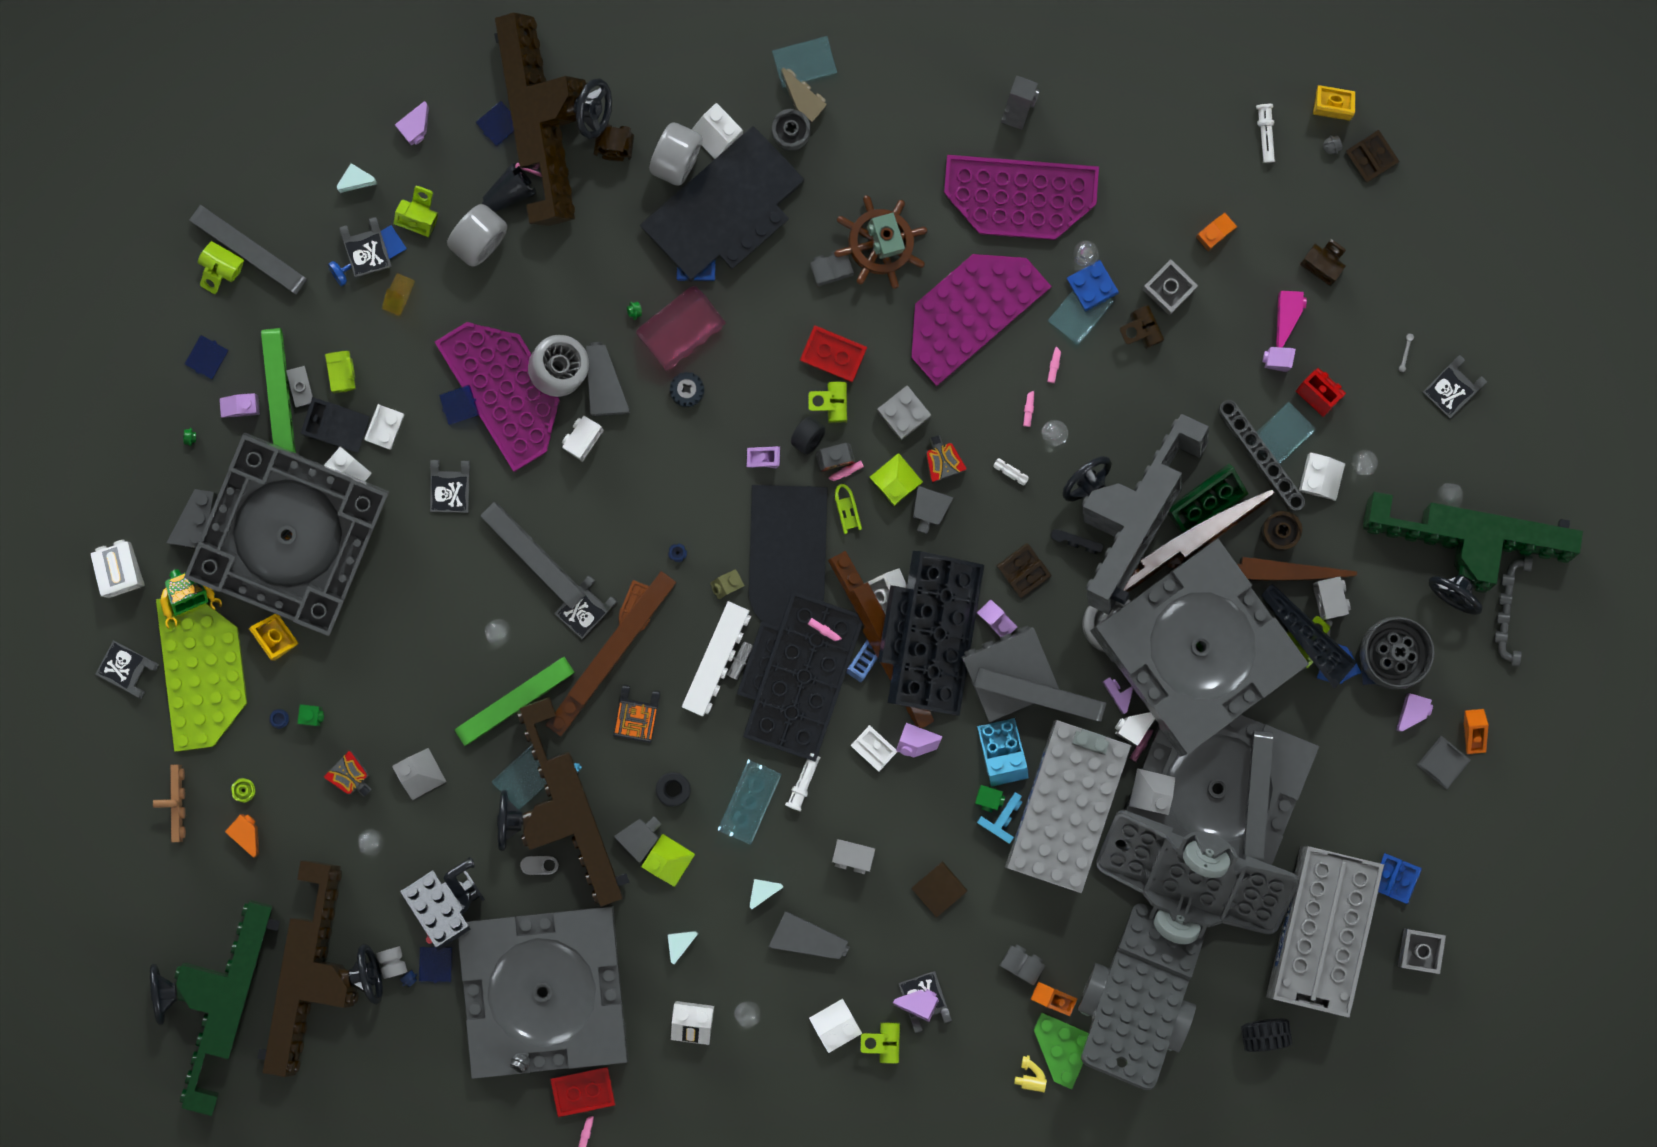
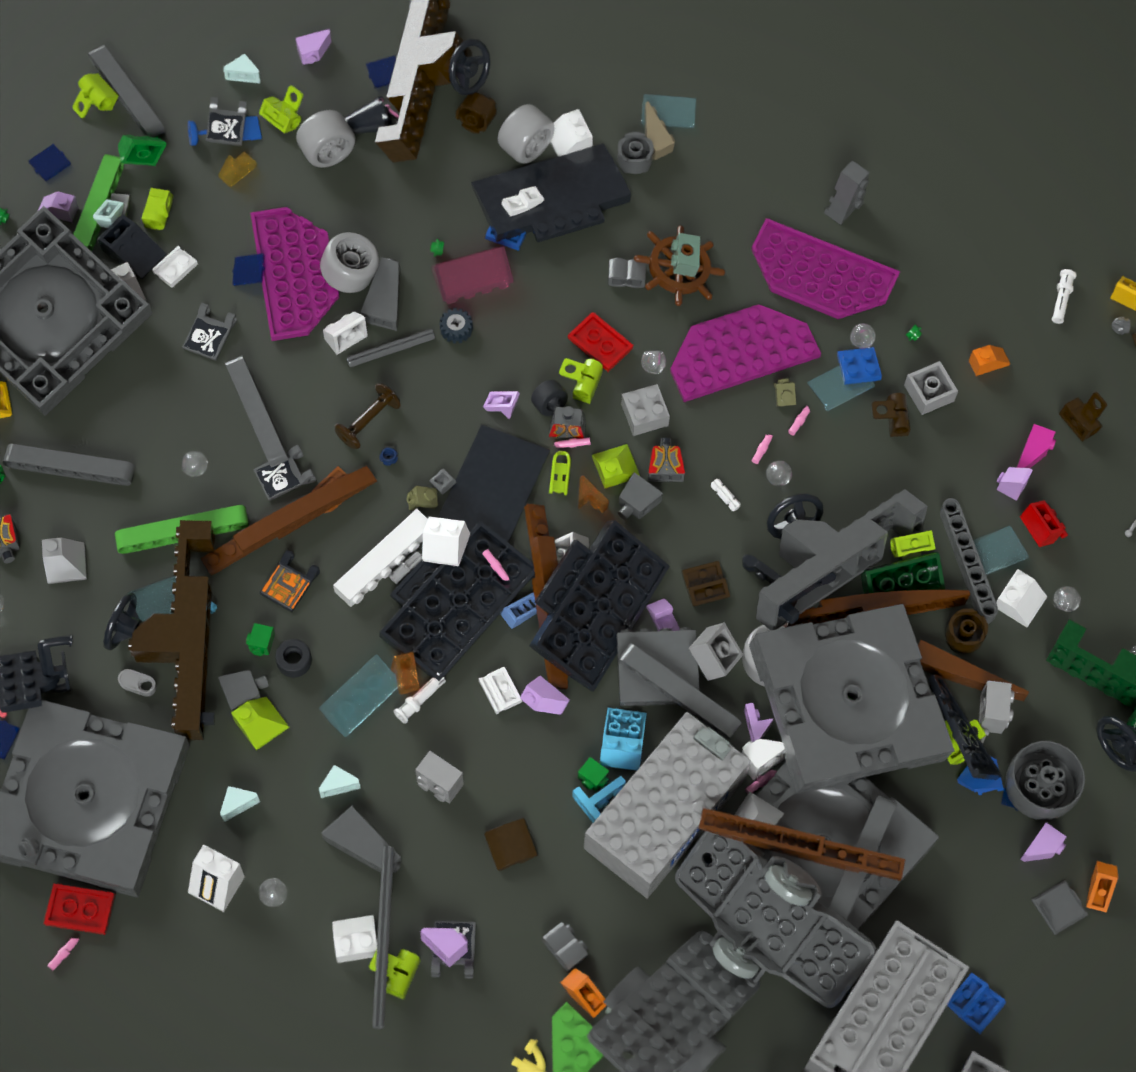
camera: 20 degrees right, 20 degrees down
(295, 313) = (140, 150): none -> green slope
(297, 397) = (108, 213): none -> light aqua slope
(378, 676) = (69, 464): none -> dark grey beam
(632, 436) = (390, 348): none -> dark grey axle
(635, 783) = (260, 639): none -> green brick
(642, 521) = (348, 435): none -> dark brown hose
(702, 232) = (524, 201): none -> white slope
(739, 559) = (442, 481): none -> dark grey tile
(768, 627) = (444, 541): none -> white slope
(783, 767) = (406, 672): none -> clear orange slope
(863, 1021) = (383, 938): none -> dark grey axle
(879, 519) = (588, 492): none -> clear orange slope
(893, 357) = (653, 361): none -> clear piece
(1030, 342) = (785, 392): none -> olive bracket
(1059, 642) = (716, 651): none -> light grey brick
(1134, 229) = (914, 333): none -> green plate
(1203, 810) = (801, 845): none -> reddish brown slope
(1205, 464) = (911, 545): none -> lime piece

